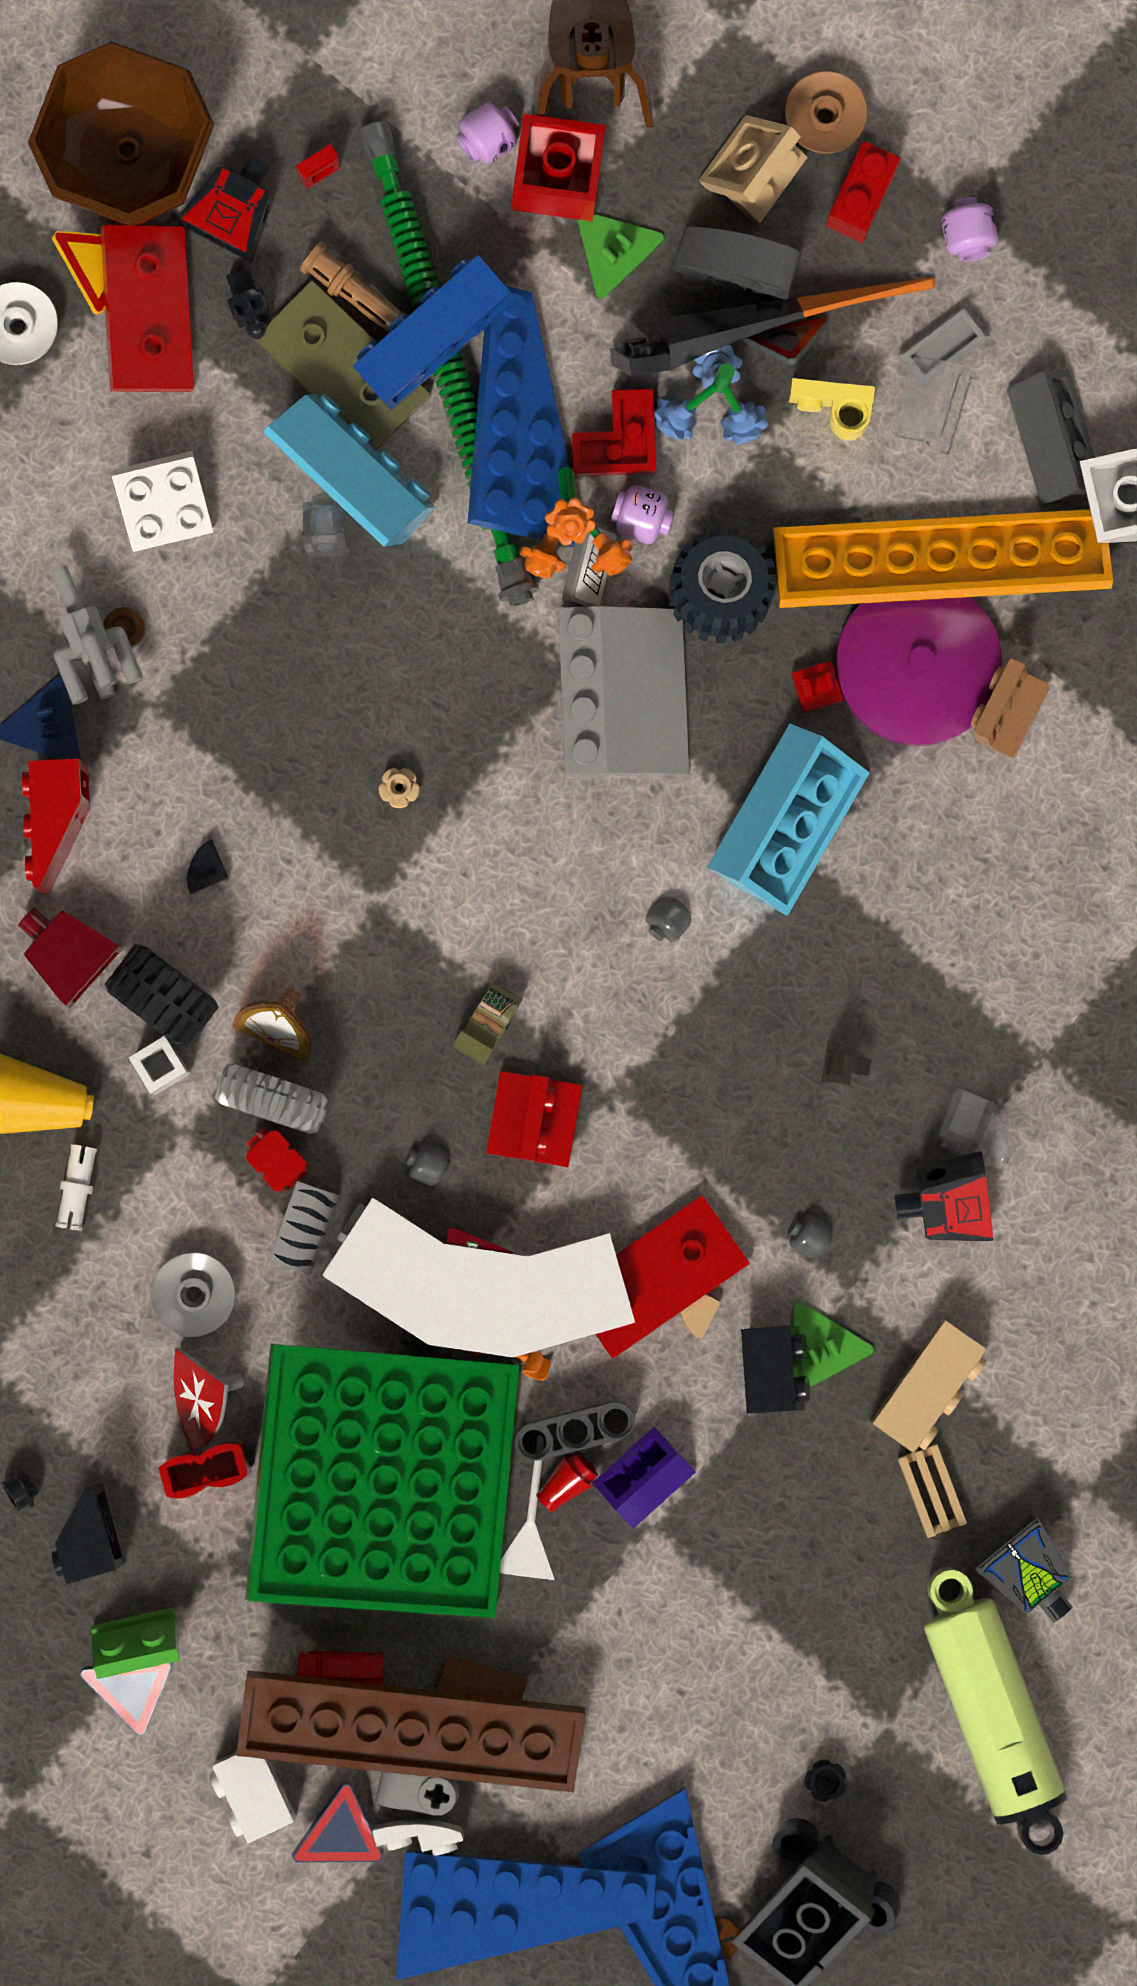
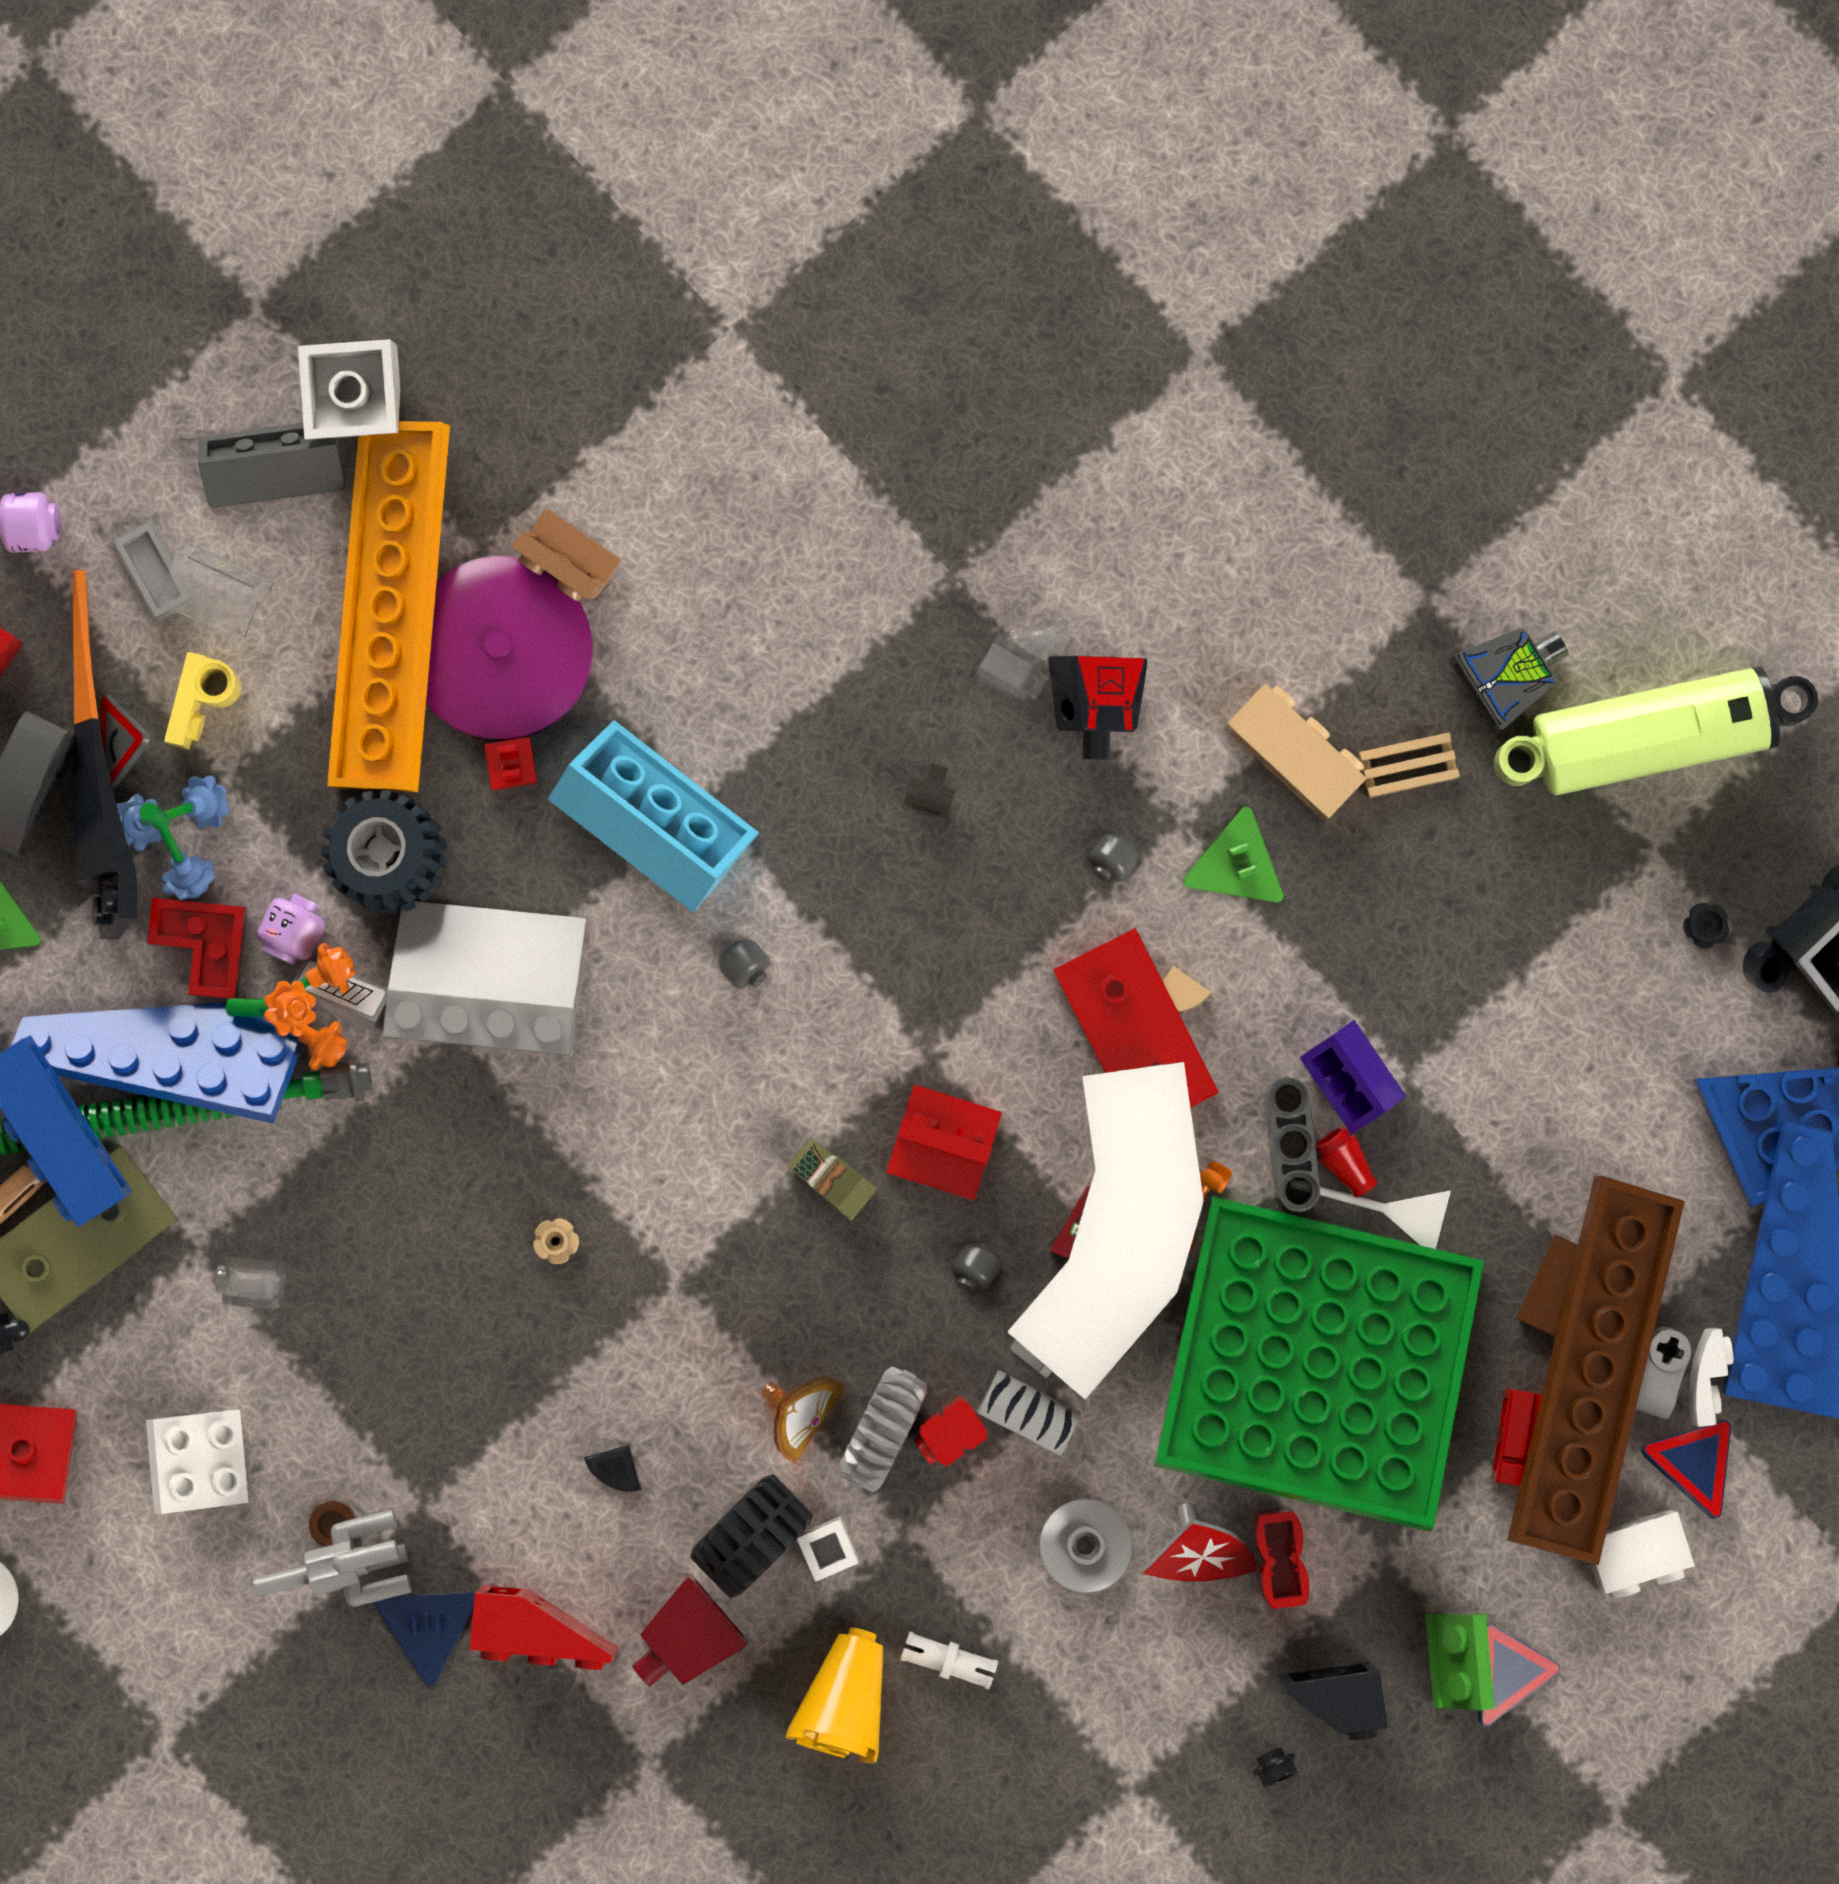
camera: 85 degrees left, 0 degrees up
(351, 469) = (192, 1245): medium azure slope -> none
(774, 1369) = (1255, 916): black brick -> none

